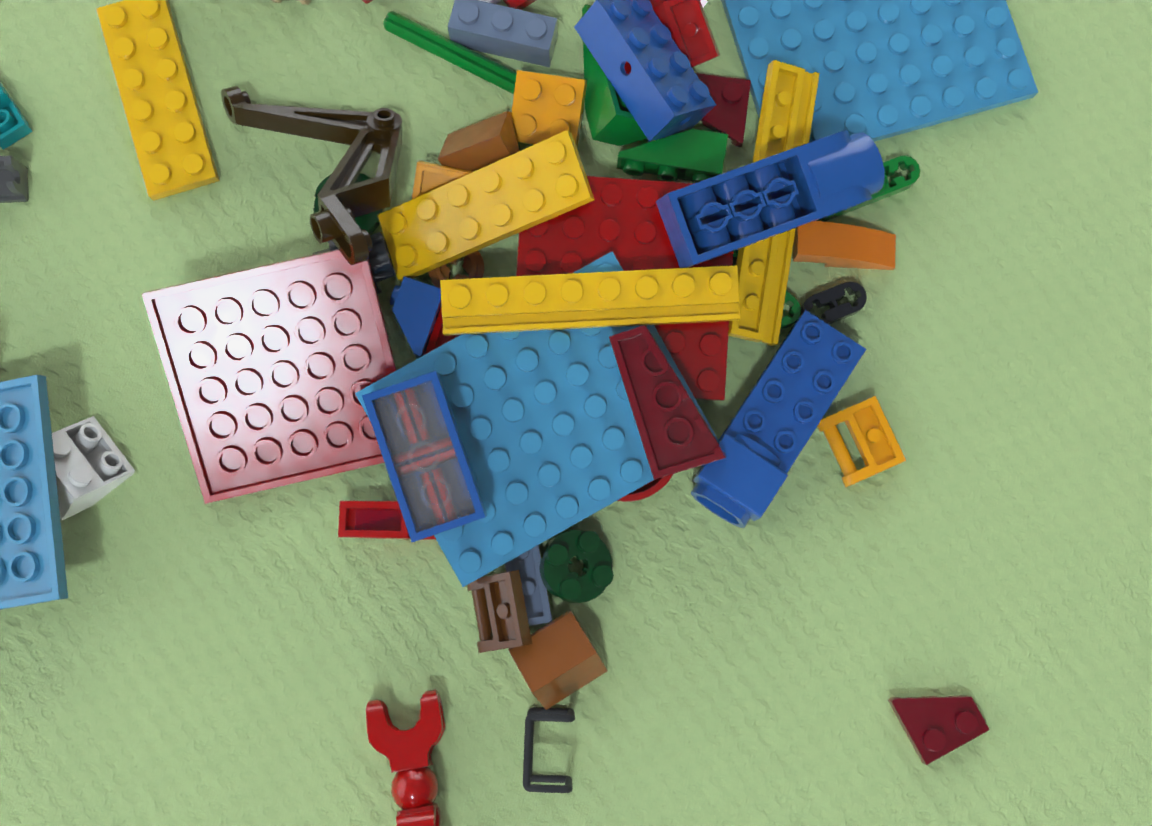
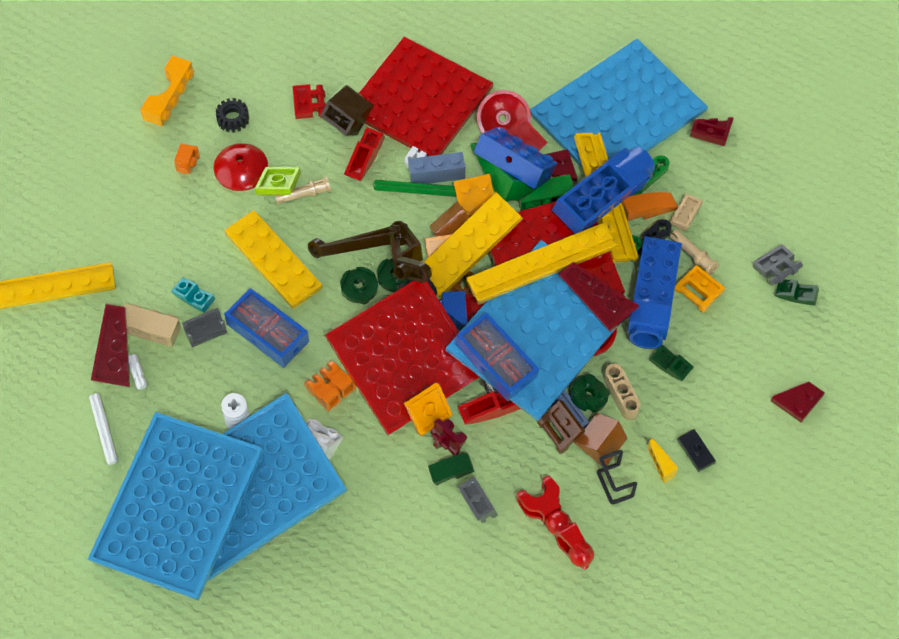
camera: 20 degrees left, 20 degrees down
(81, 224) = (267, 327): none -> brick
(135, 385) = (338, 386): none -> orange legs
(278, 182) = (359, 295): none -> dark green plate
(283, 607) = (451, 467): none -> dark green slope
(285, 488) = (427, 408): none -> light orange plate
(299, 688) = (477, 500): none -> dark grey hinge
(307, 562) = (446, 438): none -> dark red hips
(643, 602) = (618, 383): none -> tan beam
(646, 759) = (663, 463): none -> yellow slope
(715, 743) = (696, 450): none -> black plate
(746, 563) = (671, 364): none -> dark green slope
(888, 382) = (700, 257): none -> tan pin
(904, 284) = (686, 212): none -> tan plate
(1019, 441) = (773, 261): none -> dark grey plate
(1025, 142) = (712, 130): none -> dark red wing
(1030, 516) = (797, 293): none -> dark green slope

